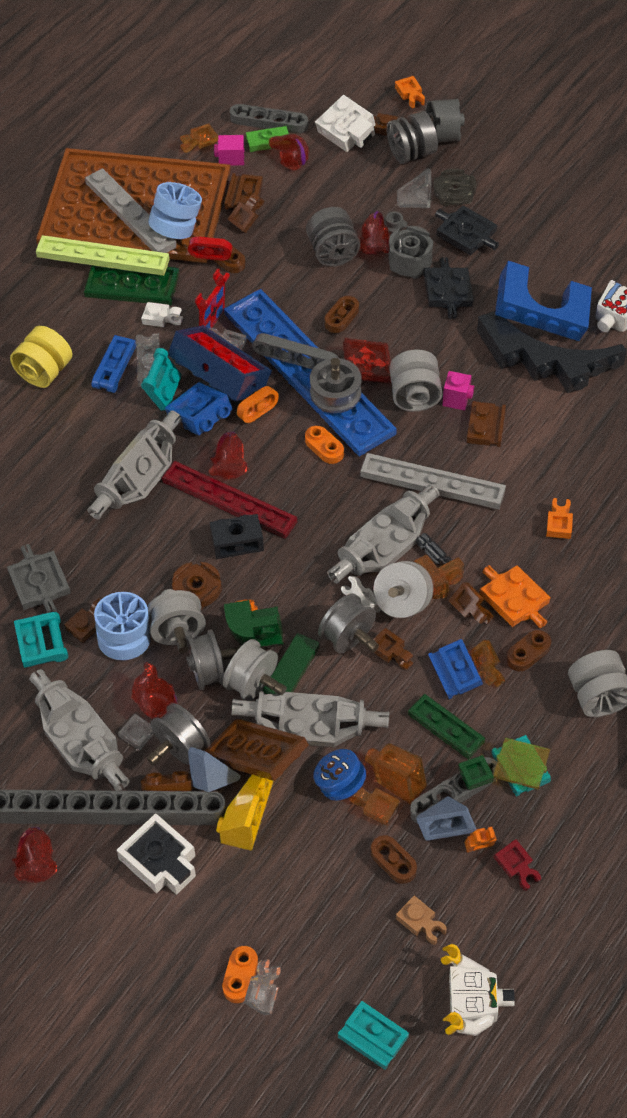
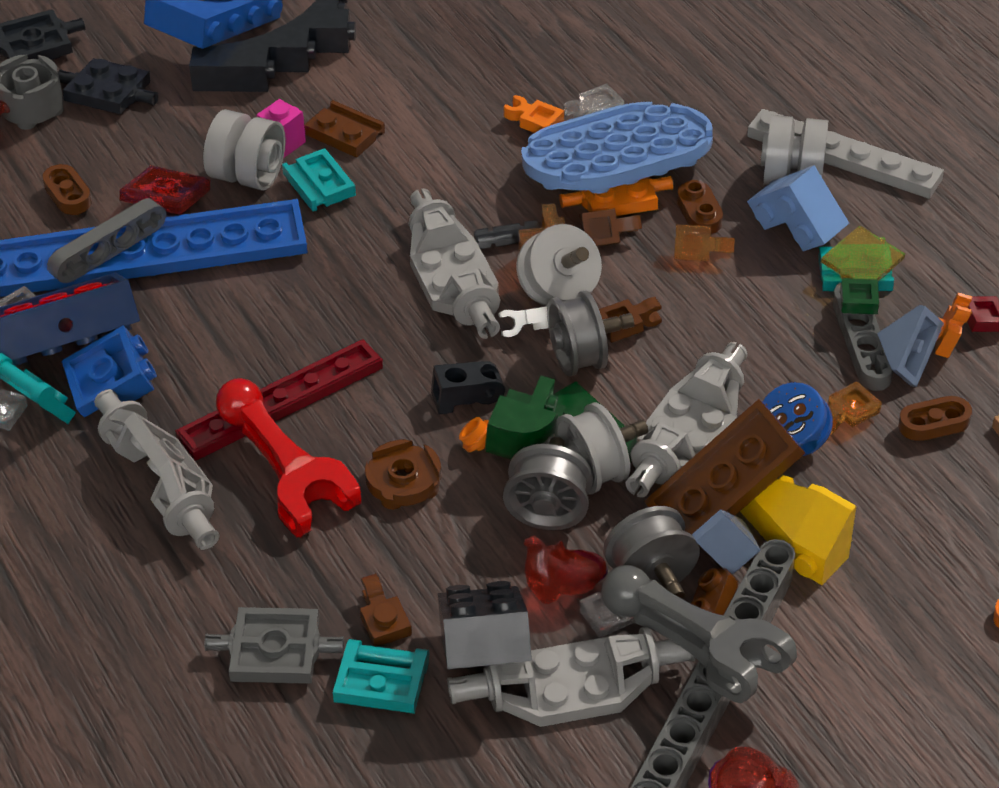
camera: 65 degrees left, 10 degrees down
(74, 669) = (484, 625): none -> brick
(108, 795) = (722, 645): none -> dark grey piece
(122, 625) = (427, 555): light blue wheel -> none
(159, 856) = (828, 645): piece -> none
(163, 533) = (300, 474): none -> red piece
(174, 617) = (460, 498): light grey wheel -> none
(228, 544) = (353, 404): black brick -> none
(229, 457) = (212, 362): clear red hair -> none
(257, 404) = (151, 323): orange plate -> none
(282, 585) = (465, 384): none -> black leg
(322, 443) = (262, 278): orange plate -> none
(335, 385) = (197, 216): flat silver wheel -> none
(398, 771) = (821, 359): clear orange torso -> none
(425, 432) = (319, 179): none -> teal plate
(446, 726) = (765, 312): dark green tile -> none
(447, 483) = (394, 200): light grey plate -> none
(455, 669) = (692, 273): blue plate -> none
(545, 708) = (803, 204): none -> medium blue brick
(547, 577) = (617, 146): none -> medium blue plate
(595, 550) = (593, 101): none -> clear plate

